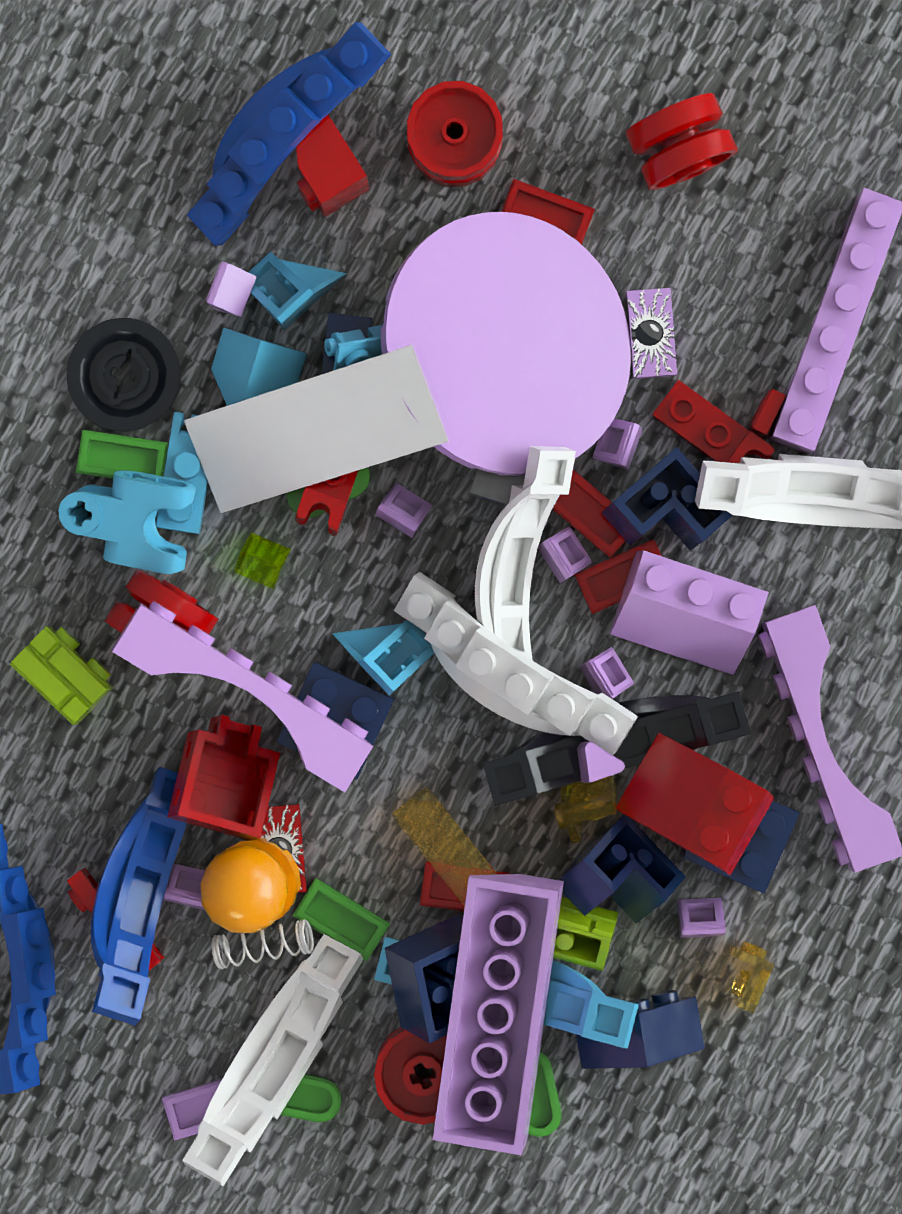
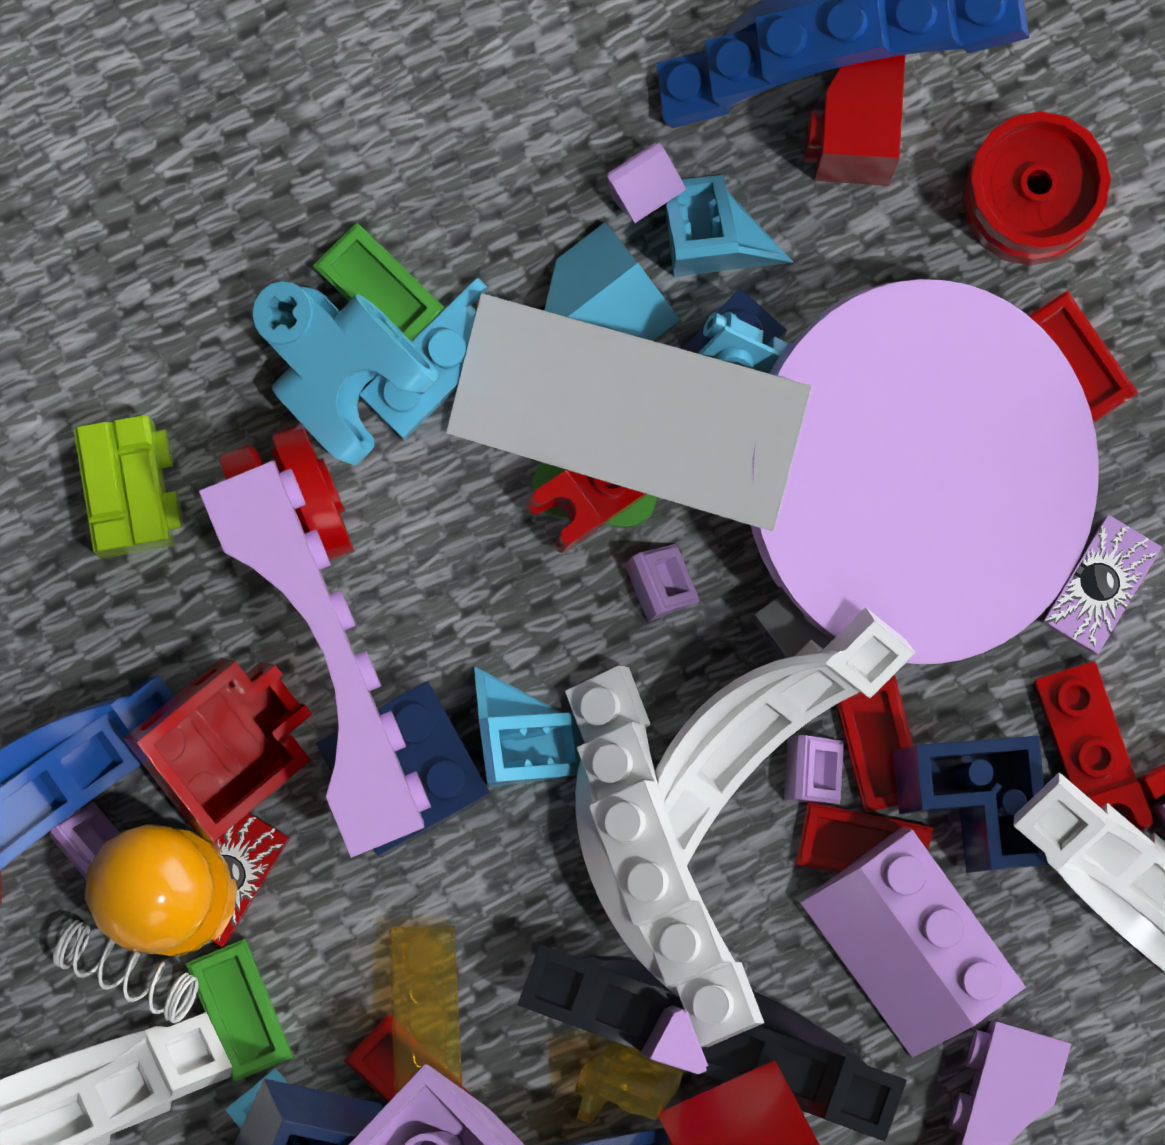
camera: 40 degrees right, 5 degrees down
(107, 348) = (454, 151): black gear -> none
(262, 560) = (454, 521): clear neon green slope -> none
(606, 674) = (763, 947): lavender slope -> none
(618, 444) = (970, 685): lavender slope -> none

